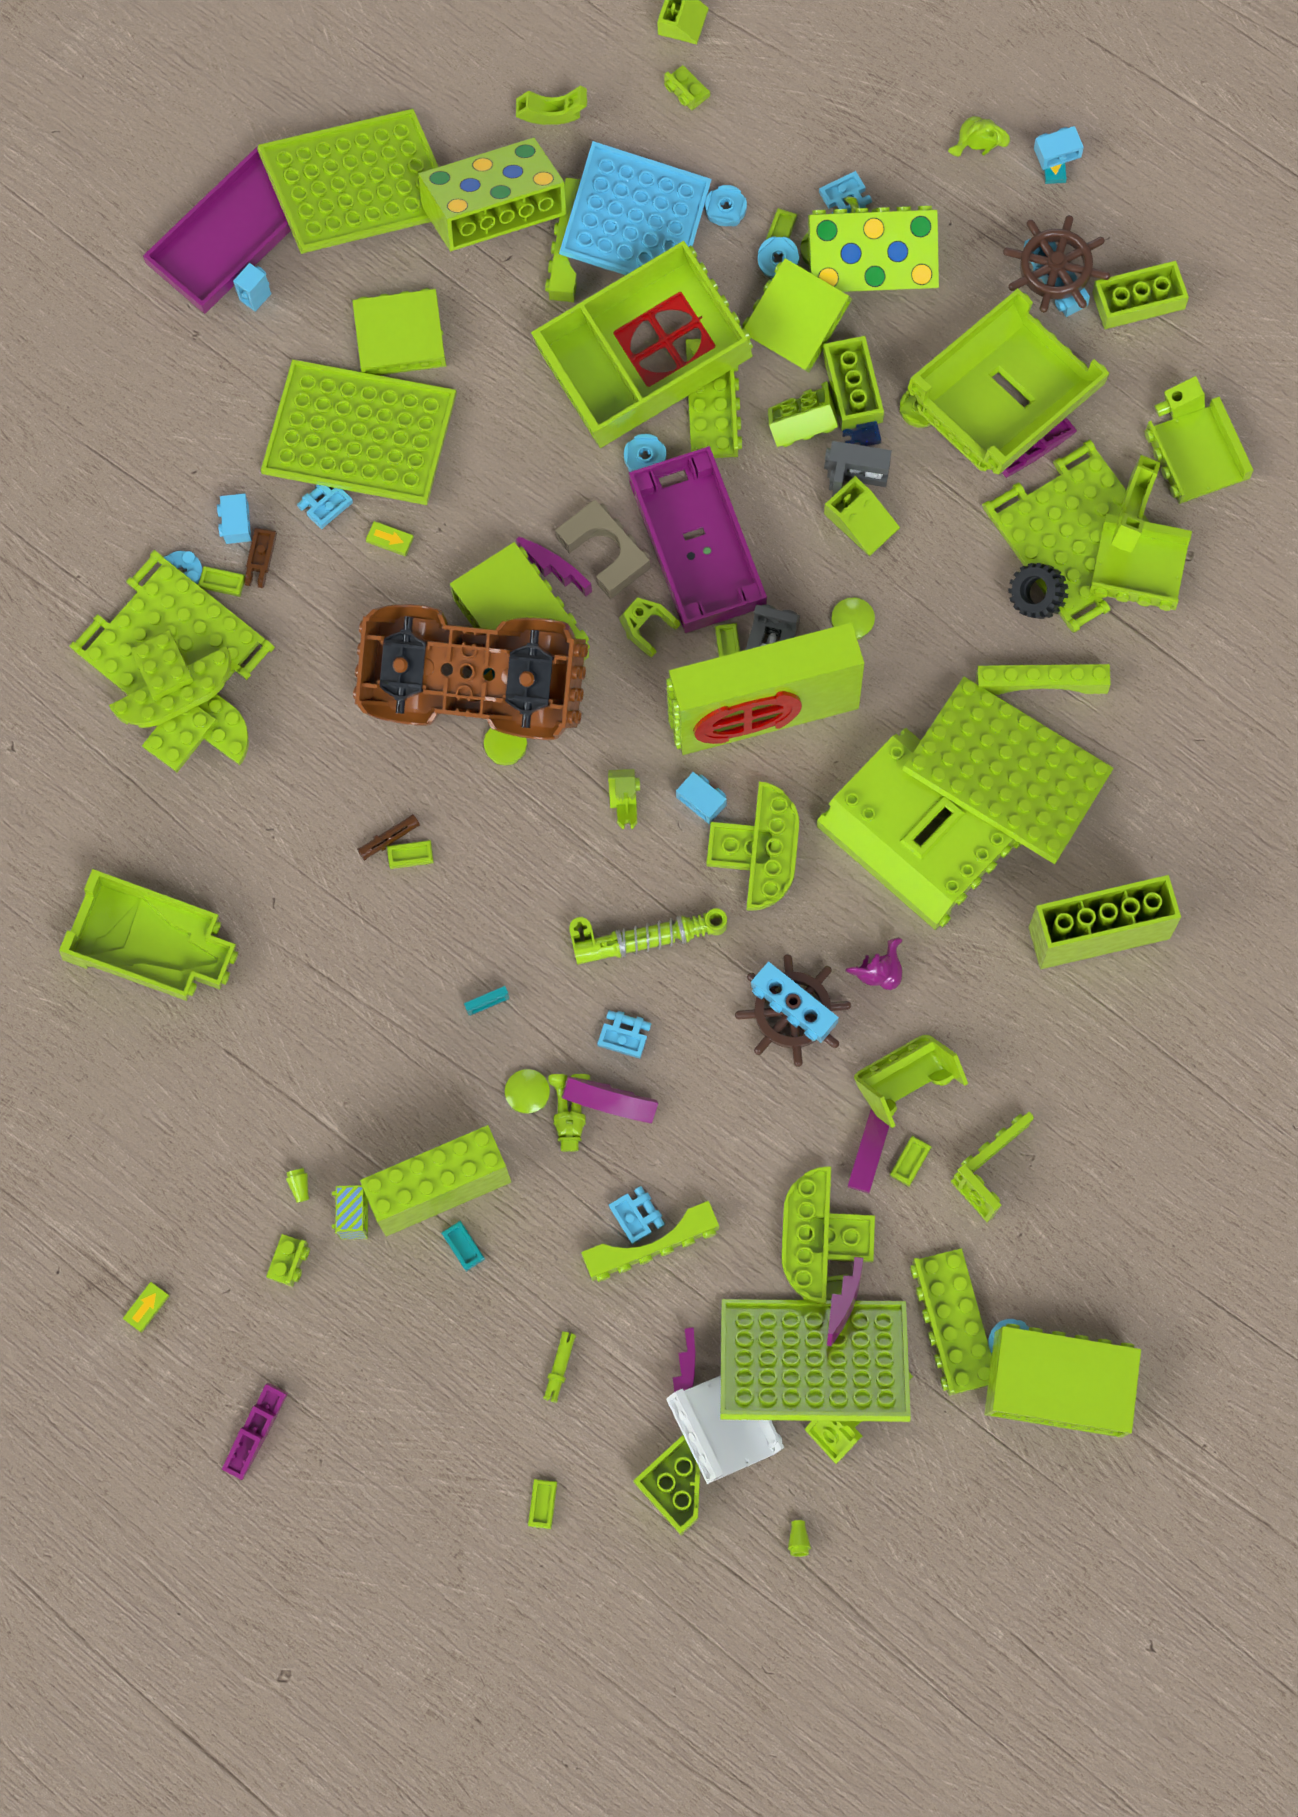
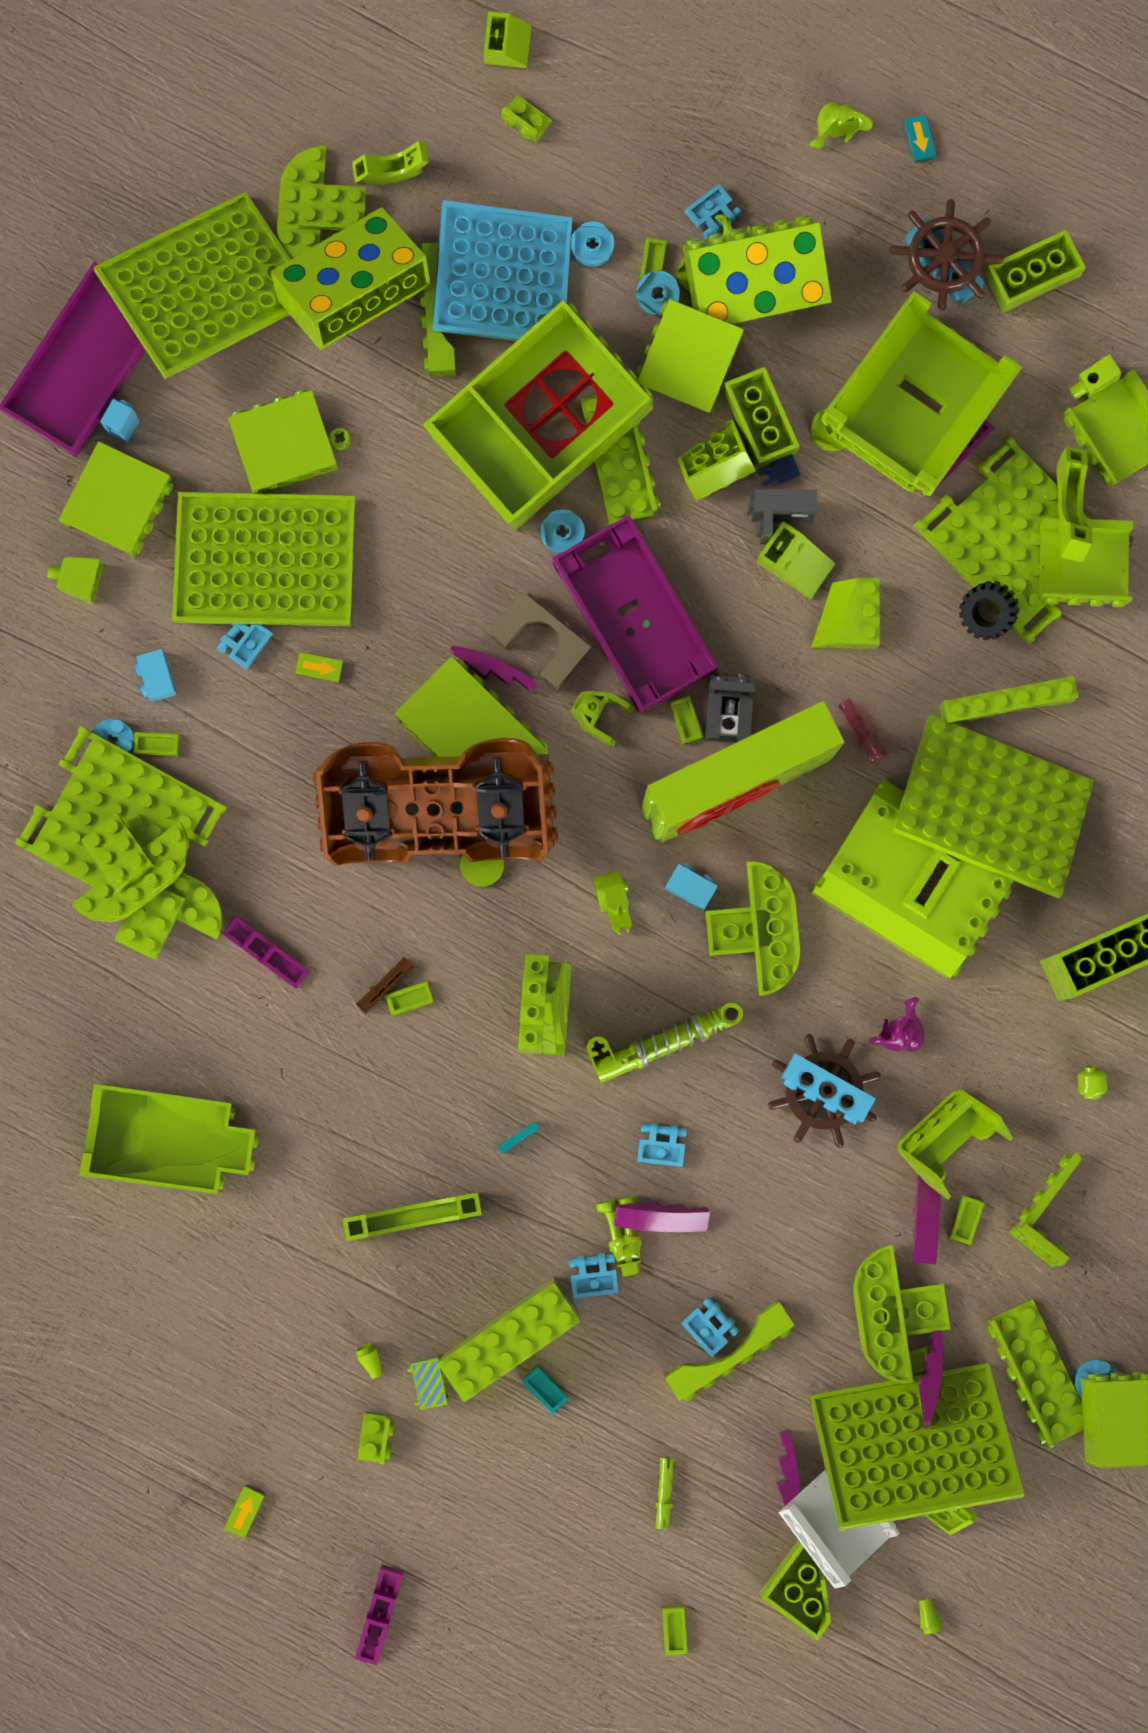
camera: 20 degrees left, 10 degrees up
(182, 419) = (78, 577): none -> lime torso
(234, 356) = (117, 499): none -> lime panel
(260, 555) = (190, 710): reddish brown hinge -> none
(282, 786) = (265, 952): none -> magenta slope
(350, 1056) = (412, 1216): none -> lime arch
(453, 345) = (340, 446): none -> lime bush
(470, 128) = (312, 206): none -> lime plate
(527, 1091) = (576, 1221): lime dish -> none
(532, 871) = (544, 1006): none -> lime panel
(532, 1152) = (593, 1283): none -> medium azure plate
(854, 611) = (806, 668): lime dish -> none
(898, 692) = (866, 739): none -> clear pink pin
(904, 577) = (850, 616): none -> lime wedge
(1058, 147) = (923, 122): medium azure brick -> none
(1059, 1050) = (1092, 1082): none -> lime head

